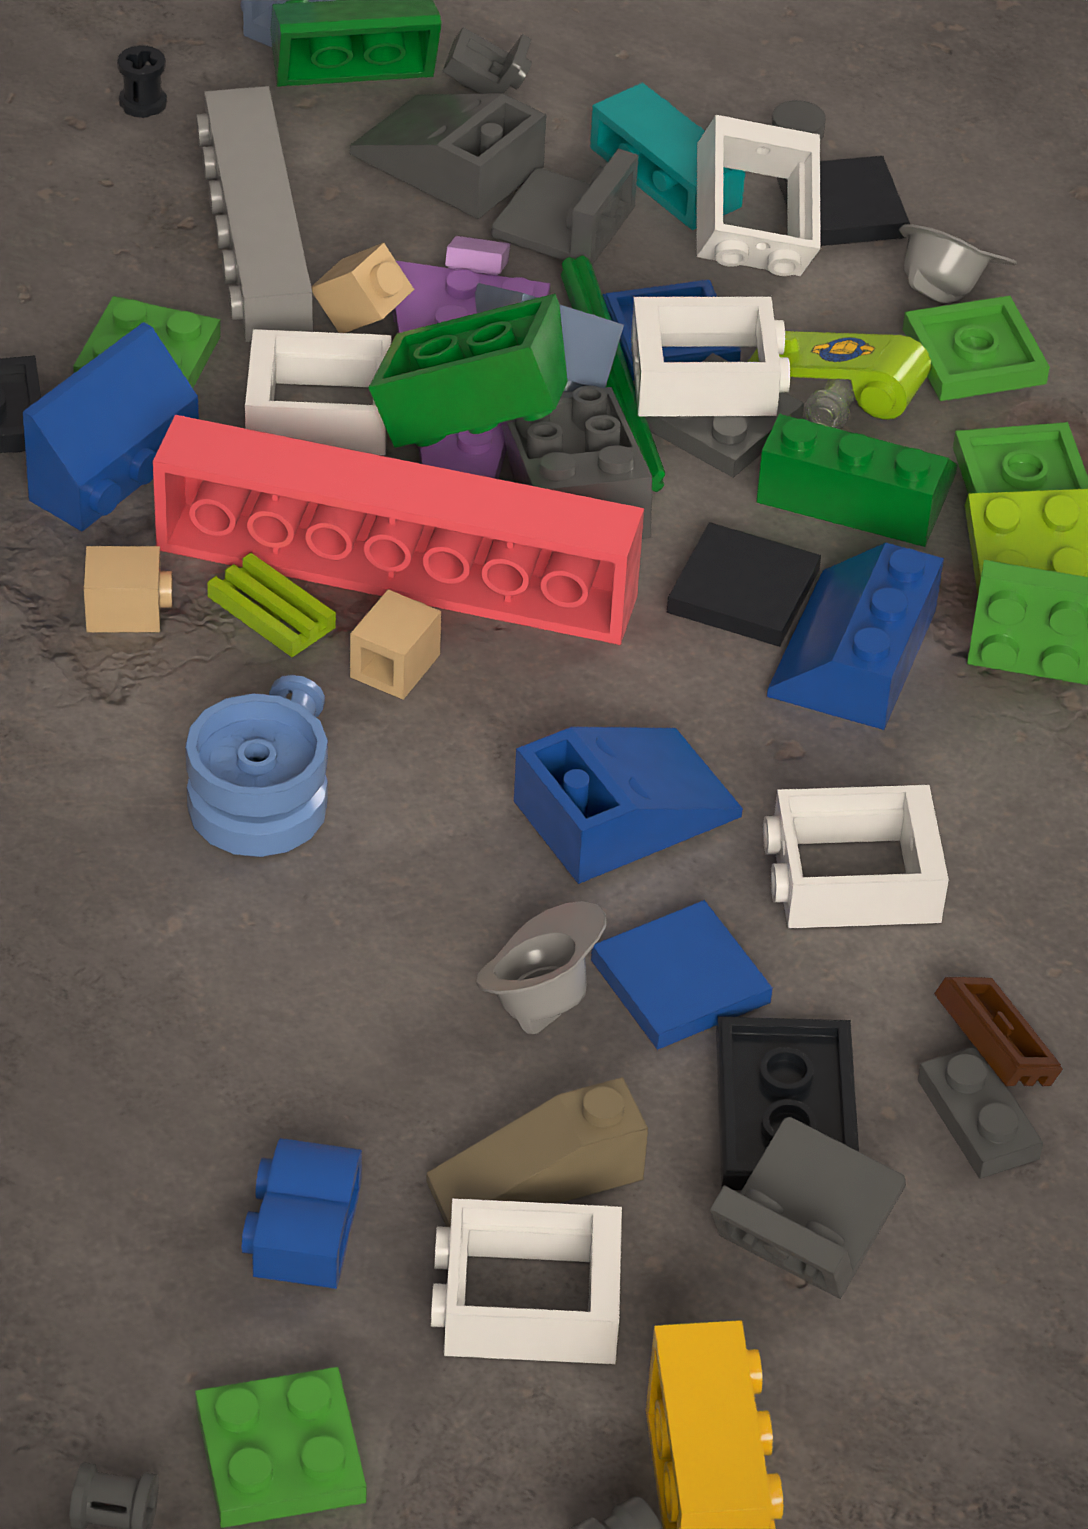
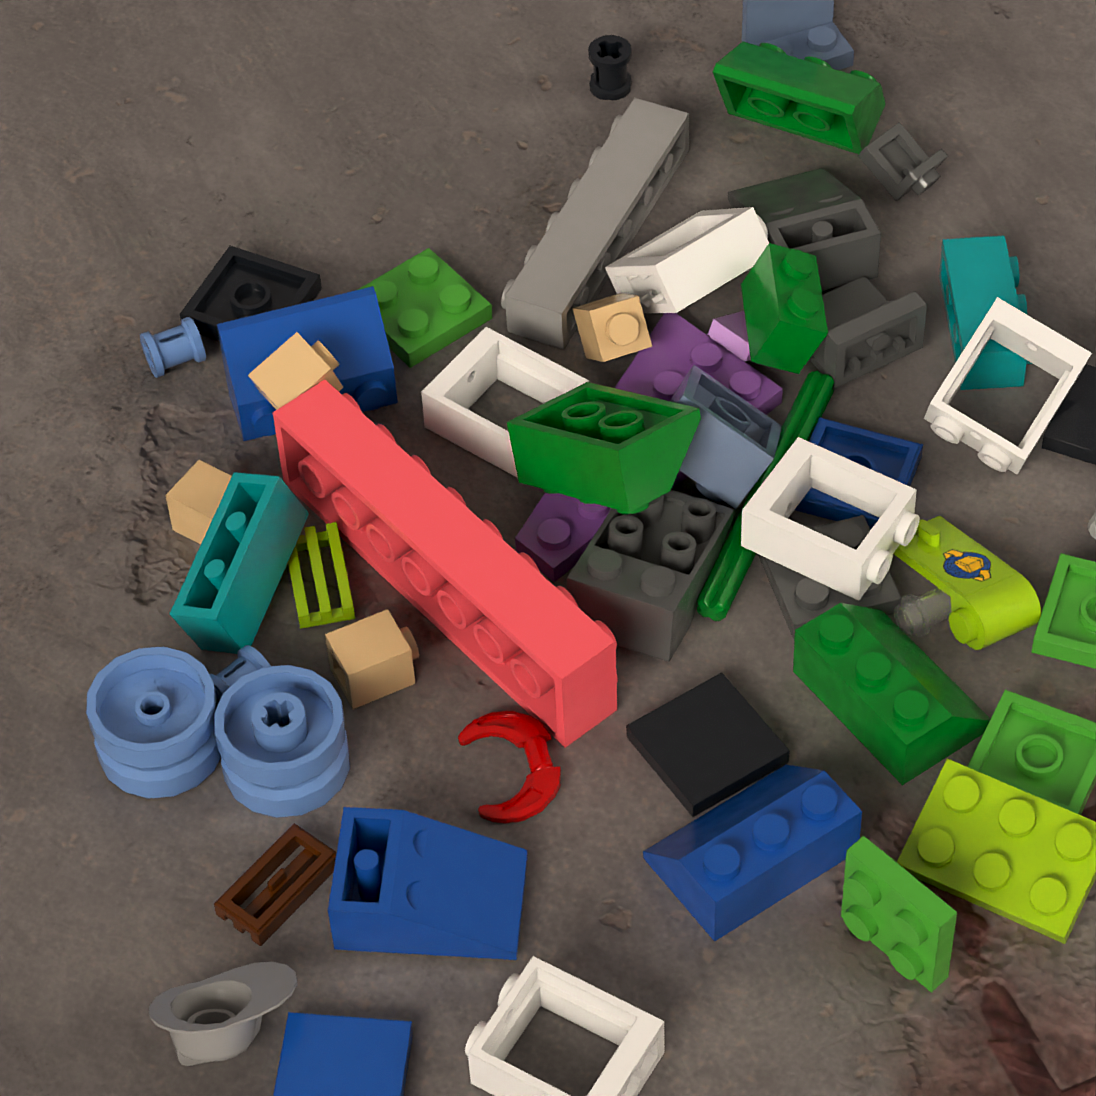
camera: 40 degrees right, 5 degrees up
(135, 431) = (294, 370): none -> tan brick
(211, 609) = (239, 563): none -> teal brick
(388, 738) = (282, 740): none -> medium blue wheel
(389, 199) = (691, 259): none -> white window
(474, 895) = (285, 890): none -> reddish brown tile
(512, 208) = (784, 308): none -> green brick
(631, 675) = (542, 782): none -> red piece

